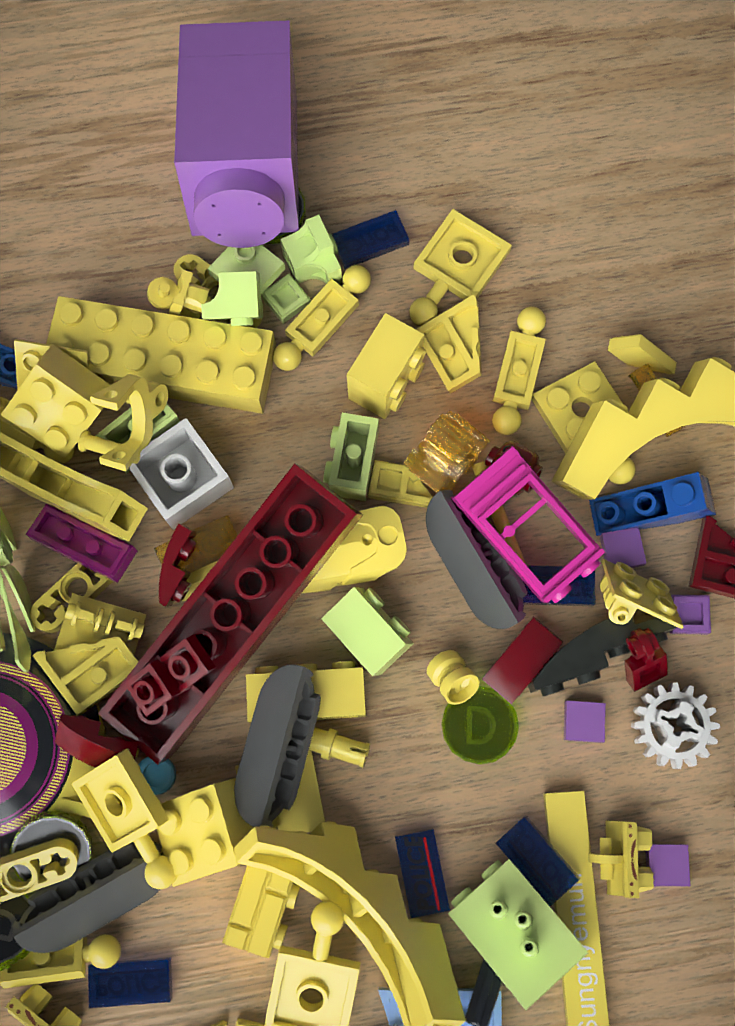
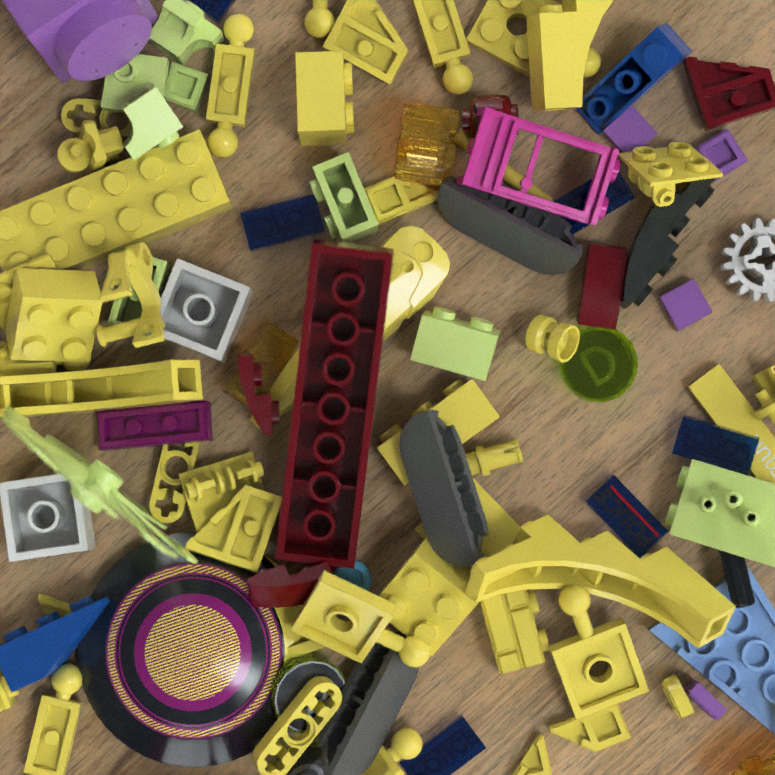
camera: 35 degrees left, 10 degrees up
(170, 675) = (319, 488): dark red slope -> none
(291, 446) = (282, 222): none -> clear blue tile
(647, 660) = (707, 219): dark red plate -> none

